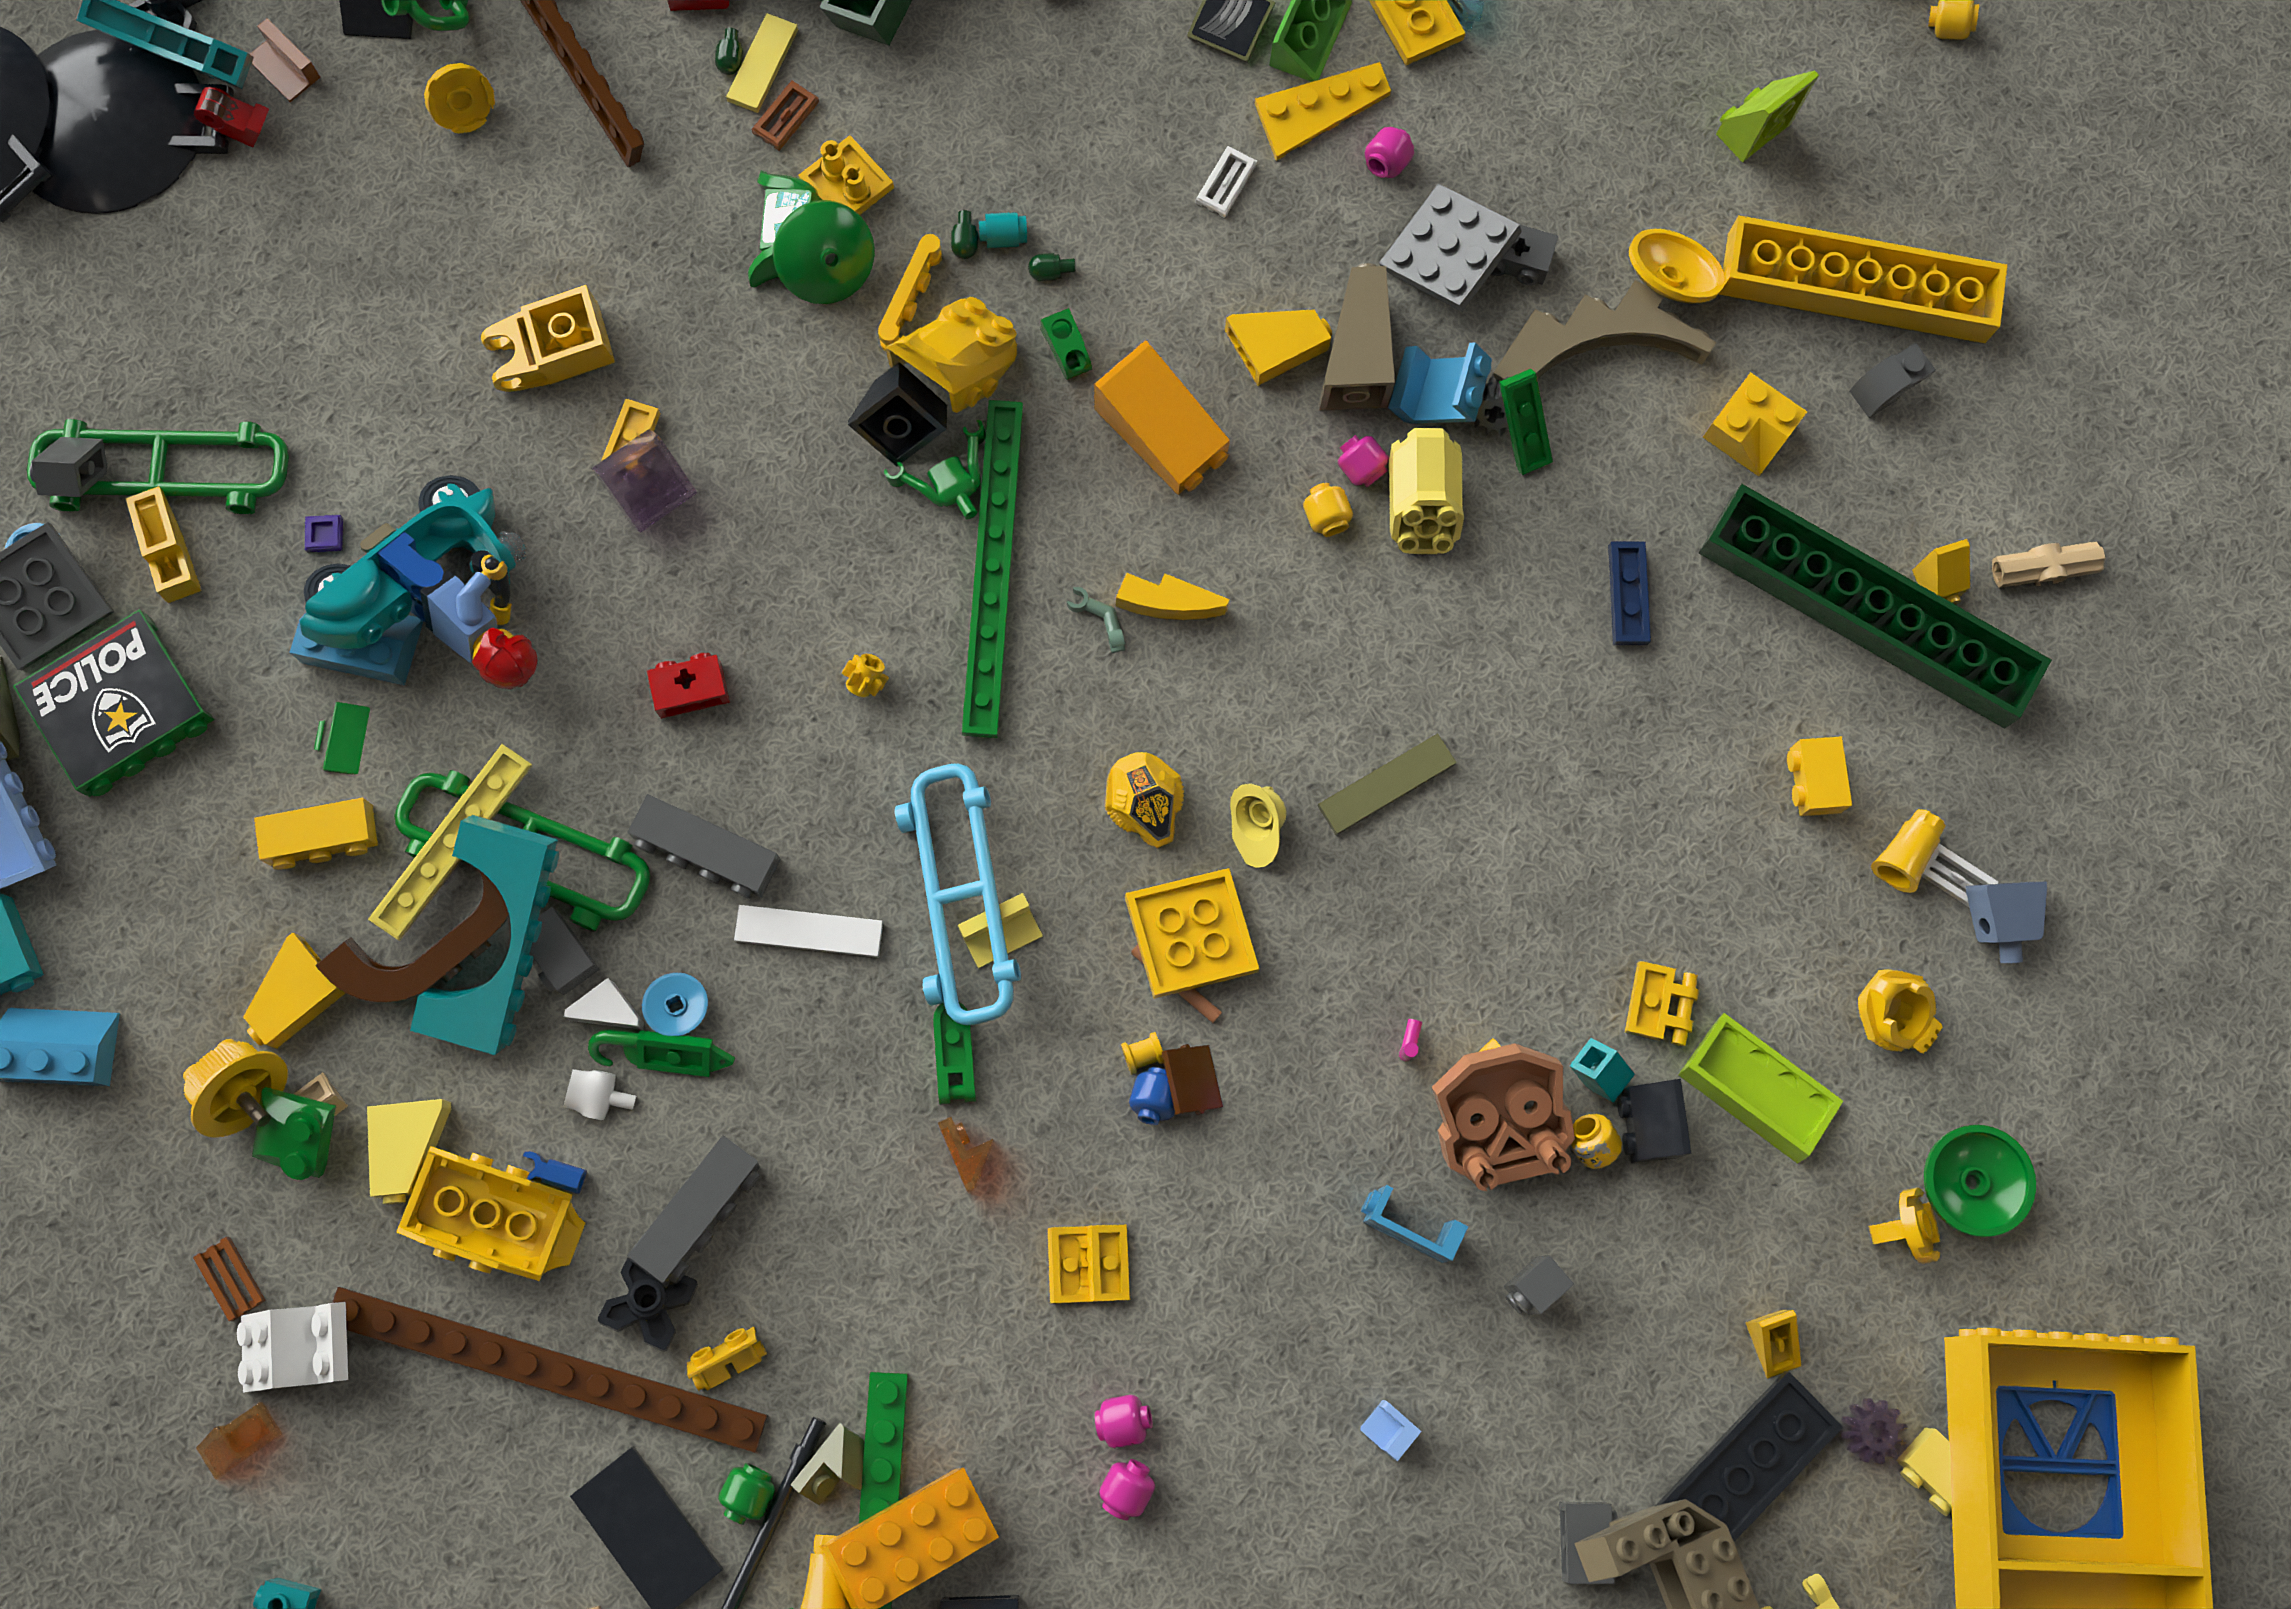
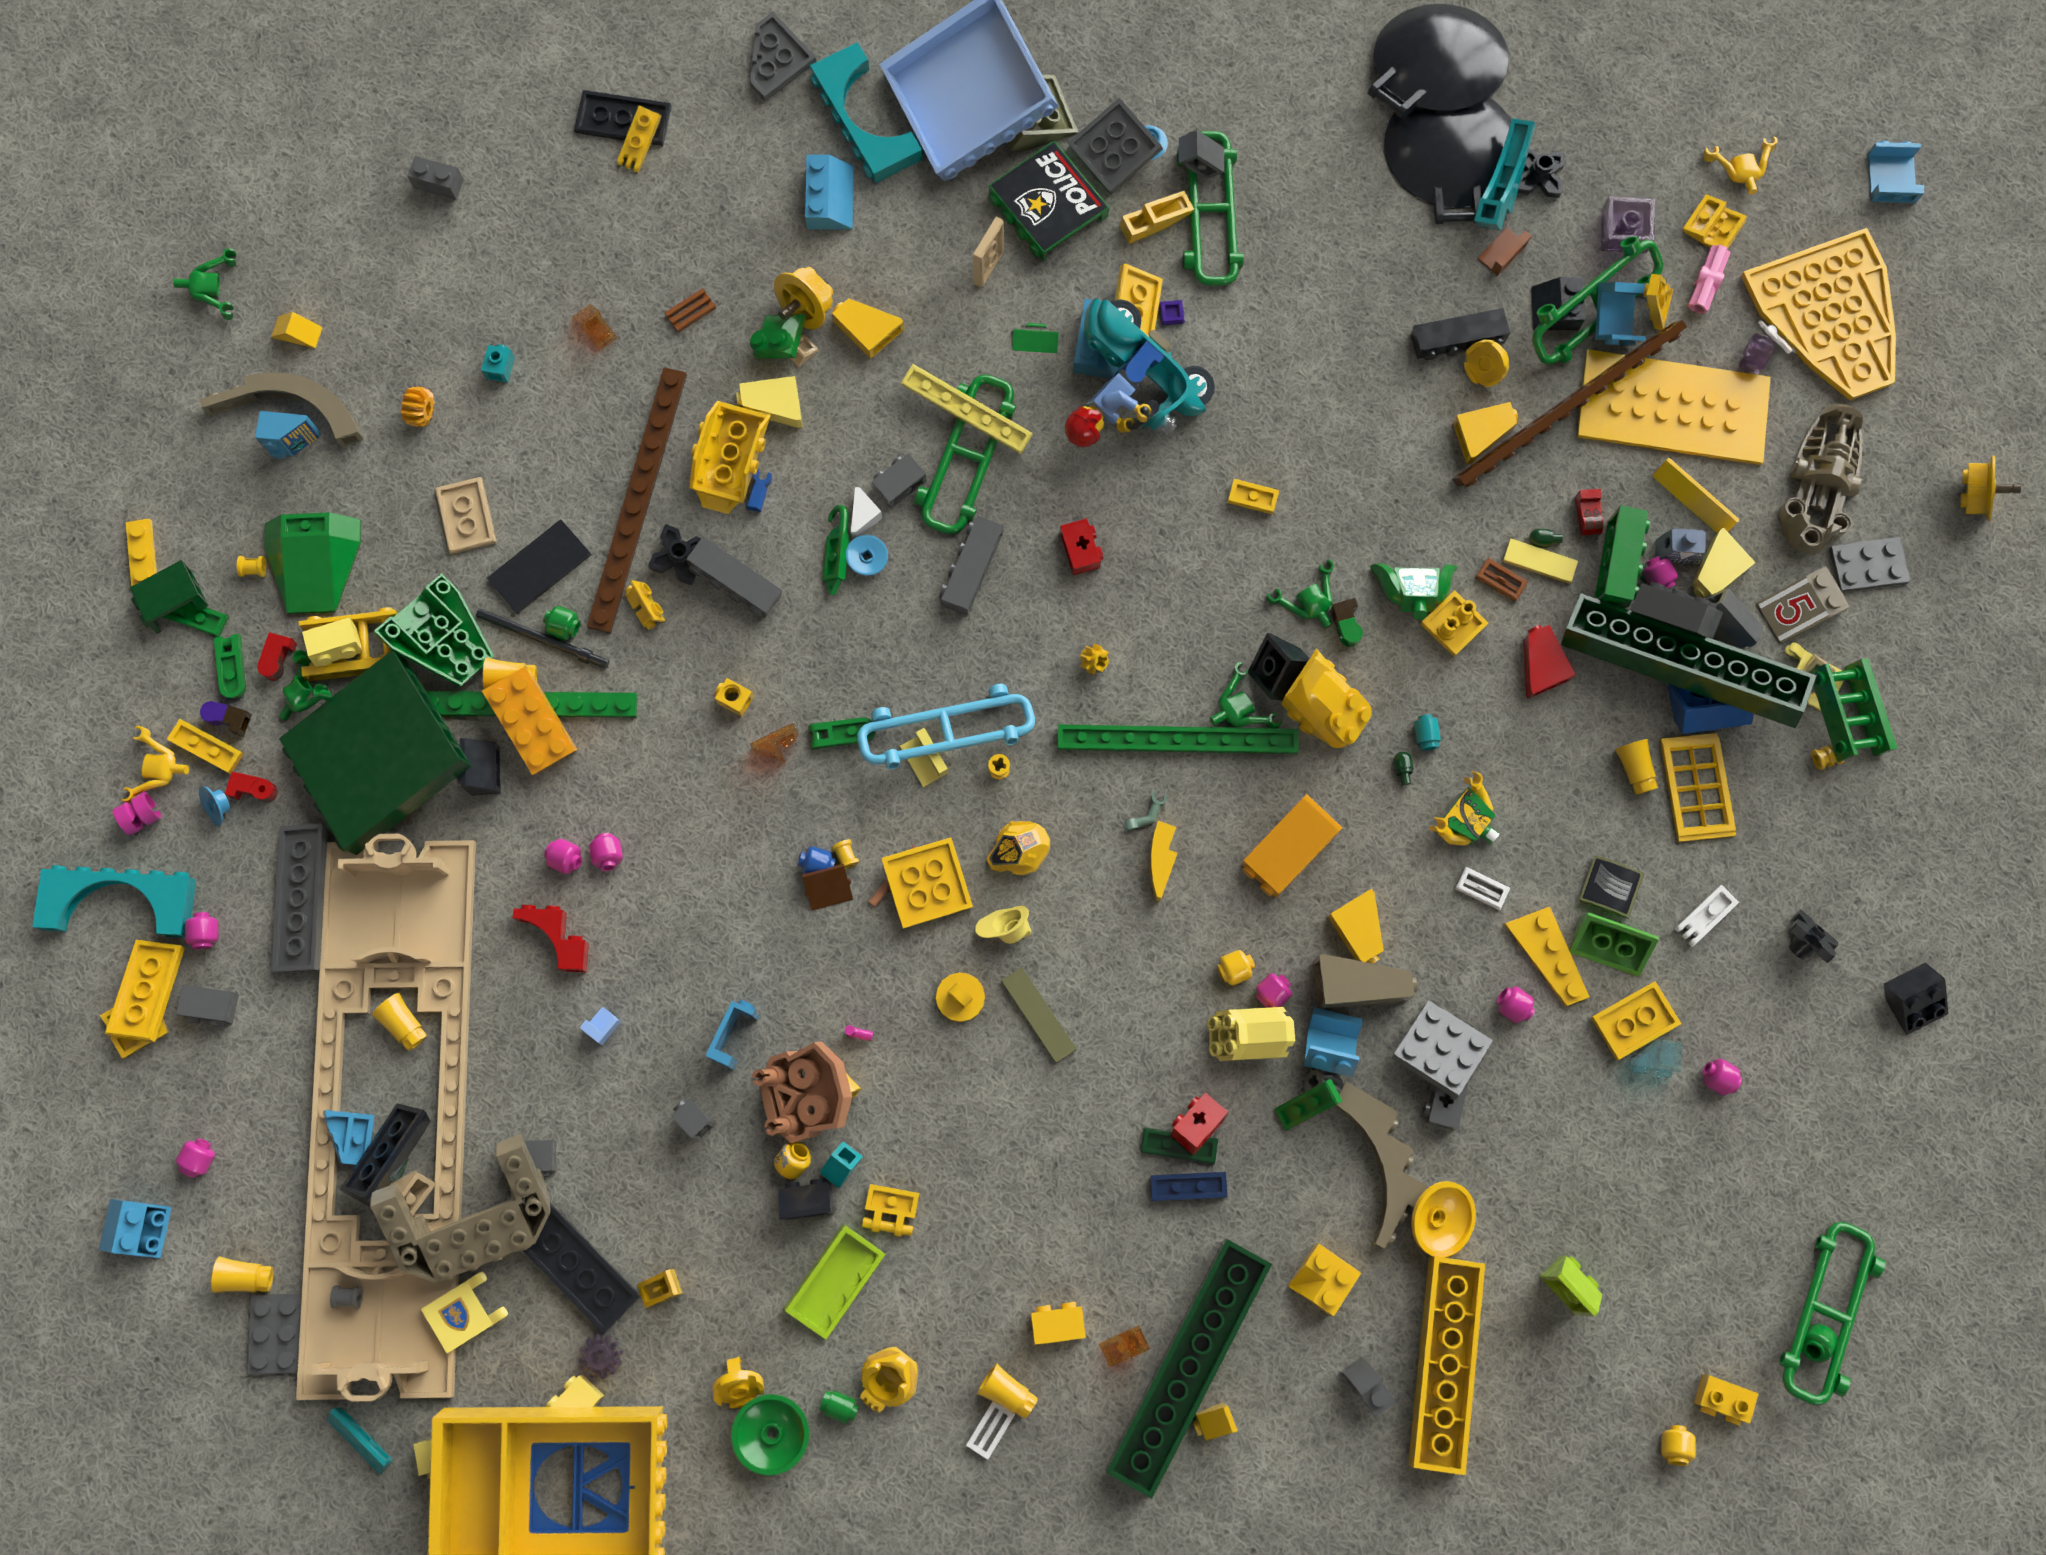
camera: 90 degrees right, 0 degrees up
(193, 790) = (988, 252): none -> tan tile
(230, 115) = (1458, 221): red leg -> none
(281, 576) = (1142, 291): none -> yellow tile
(293, 1347) = (647, 349): white bracket -> none
(316, 833) = (969, 329): yellow brick -> none
(368, 980) = (874, 377): reddish brown arch -> none
(407, 133) = (1459, 333): none -> black brick
(520, 869) = (944, 447): teal arch -> none
(550, 341) = (1316, 440): yellow brick -> none
(559, 115) = (1483, 429): none -> yellow slope
(593, 1094) = (808, 511): white piece -> none
(644, 480) = (1218, 505): brick -> none
(797, 366) = (1312, 600): none -> green piece
(808, 931) = (919, 636): white tile -> none
(809, 237) = (1405, 605): green dish -> none
(835, 1460) = (580, 674): olive slope -> none
(836, 323) = (1345, 622): none -> leg
(887, 1200) = (738, 706): none -> yellow brick
(911, 70) = (1544, 661): none -> red slope
(914, 280) = (1364, 667): yellow plate -> none
(964, 236) = (1420, 706): dark green cylinder -> none
(1016, 811) = (994, 760): none -> yellow bush
(1066, 343) = (1344, 780): green leg -> none
(1088, 1263) = (706, 826): yellow slope -> none
(1126, 186) = (1468, 816): none -> torso
(1228, 1508) = (571, 952): none -> red arch
(1358, 893) = (960, 997): none -> yellow tile
(1540, 554) = (1192, 1135): none -> brick
(1572, 603) = (1162, 1144): none -> dark green tile
(1845, 688) = (1124, 1345): none -> clear orange slope
(1935, 1084) = (839, 1406): none -> green brick
(2008, 915) = (962, 1463): sand blue torso -> none
(2048, 563) = (1232, 1506): tan piece -> none

